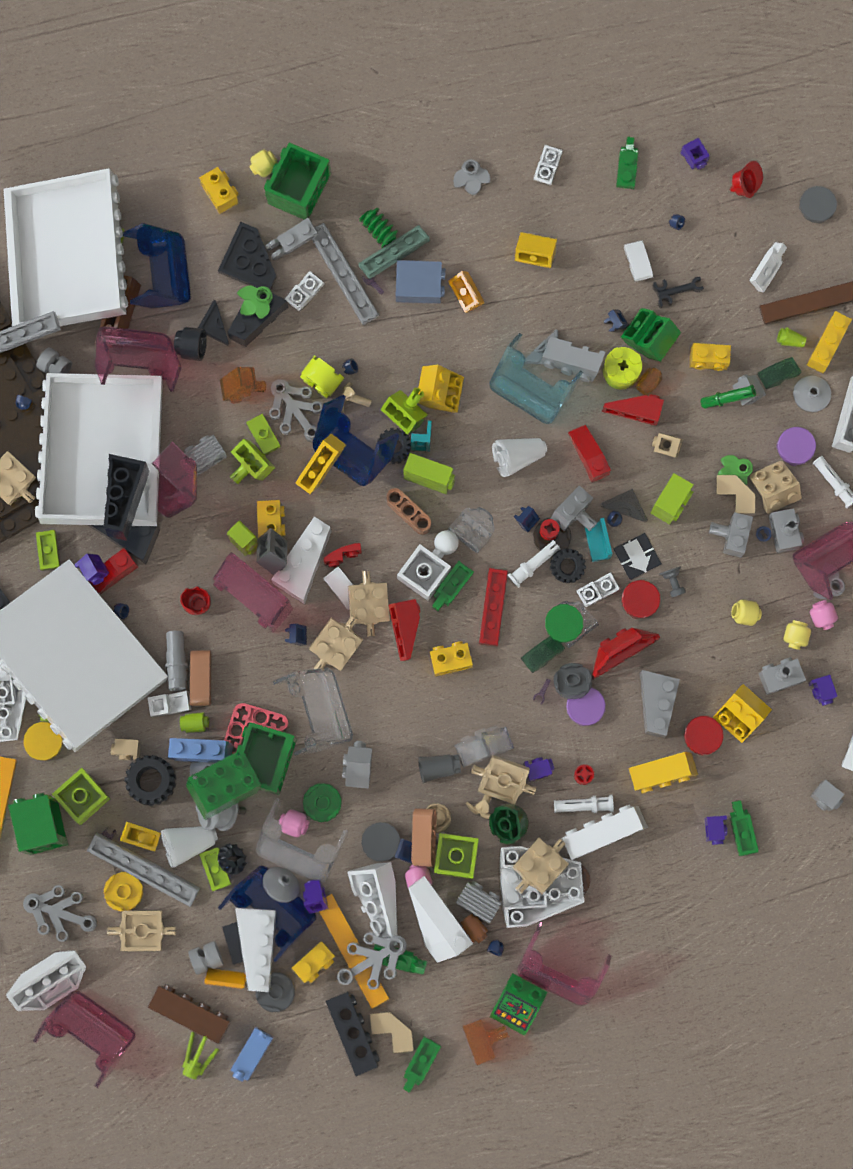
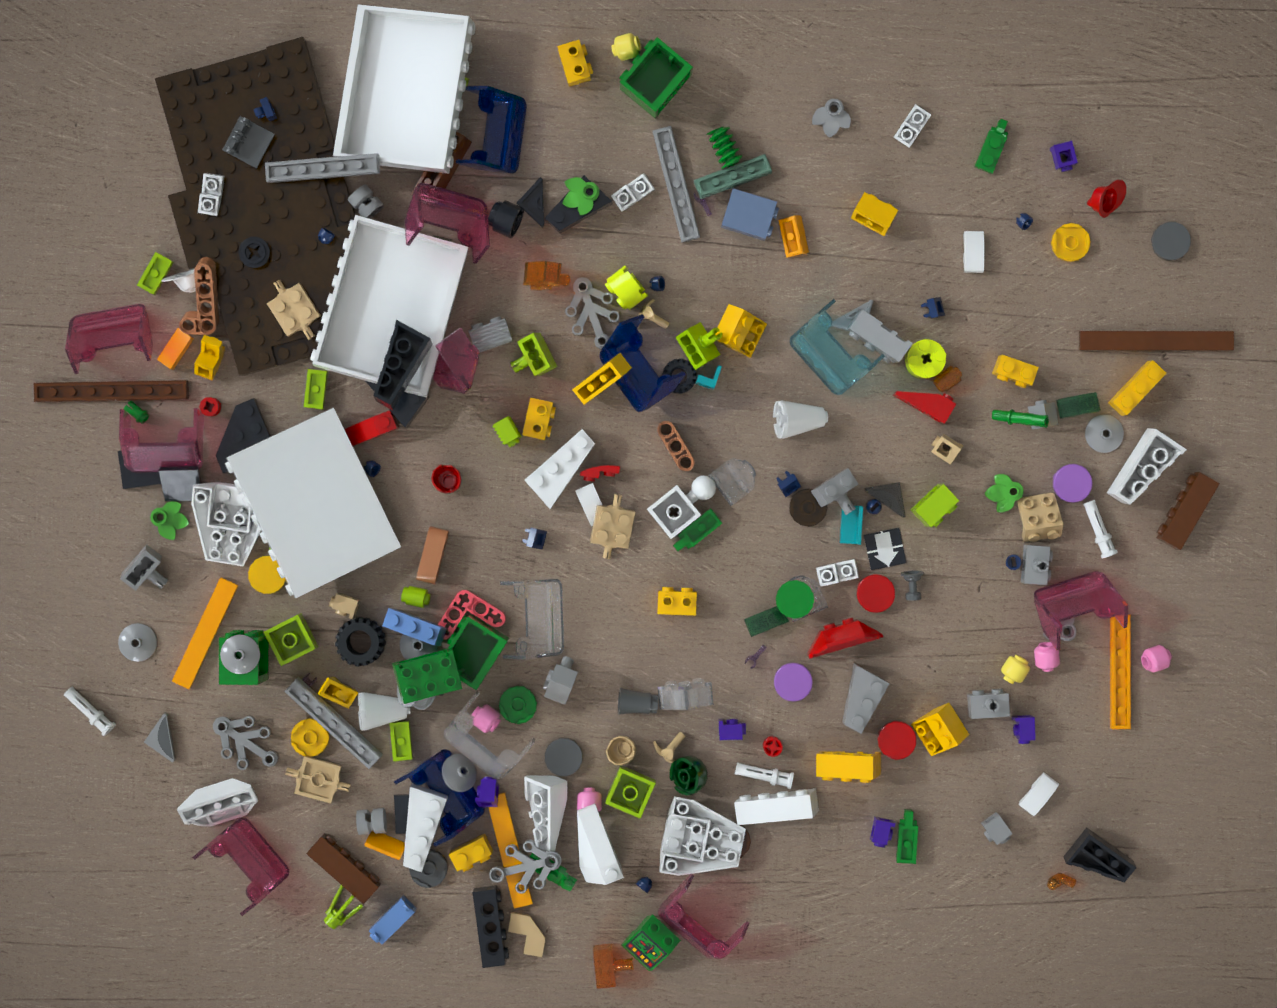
camera: 15 degrees right, 10 degrees up
(42, 819) = (249, 650): none -> light grey dish
(92, 568) = (354, 422): dark purple brick -> none
(169, 704) = (396, 571): white slope -> none
(176, 661) = (413, 532): light grey piece -> none
(229, 866) = (415, 729): black gear -> none
(248, 259) = (585, 144): black plate -> none
(253, 592) = (501, 489): clear pink windscreen -> none
(263, 434) = (554, 329): lime plate -> none
(272, 551) = (531, 454): dark grey brick -> none
(293, 238) = (636, 134): light grey hinge -> none
(336, 643) = (570, 558): tan plate -> none
(404, 851) = (585, 774): dark blue tile -> none
(405, 623) = (643, 554): red slope -> none
(420, 1063) = (546, 970): green hinge -> none
(424, 837) = (604, 768): nougat beam -> none
(429, 473) = (705, 416): lime brick -> none
(474, 928) = (629, 861): dark orange brick -> none
(479, 902) = (640, 839): light grey brick -> none
(493, 607) = (731, 561): red tile -> none
(503, 779) = (695, 733): tan plate -> none
(526, 569) = (774, 534): white pin -> none
(540, 866) = (706, 824): tan plate -> none
(549, 533) = (804, 502): red wheel -> none
(556, 565) = (814, 531): black tyre -> none
(572, 681) = (787, 655): dark grey tile -> none
(589, 453) = (868, 434): red slope -> none
(651, 334) = (963, 332): green piece -> none
(664, 294) = (990, 292): black bar -> none
(725, 230) = (1070, 242): none -> yellow tile
(733, 485) = (999, 506): tan tile -> none
(735, 534) = (986, 555): light grey brick -> none
(746, 612) = (973, 634): light yellow head -> none
(768, 267) = (1101, 293): white hinge -> none
(790, 338) = (1100, 372): lime cone -> none

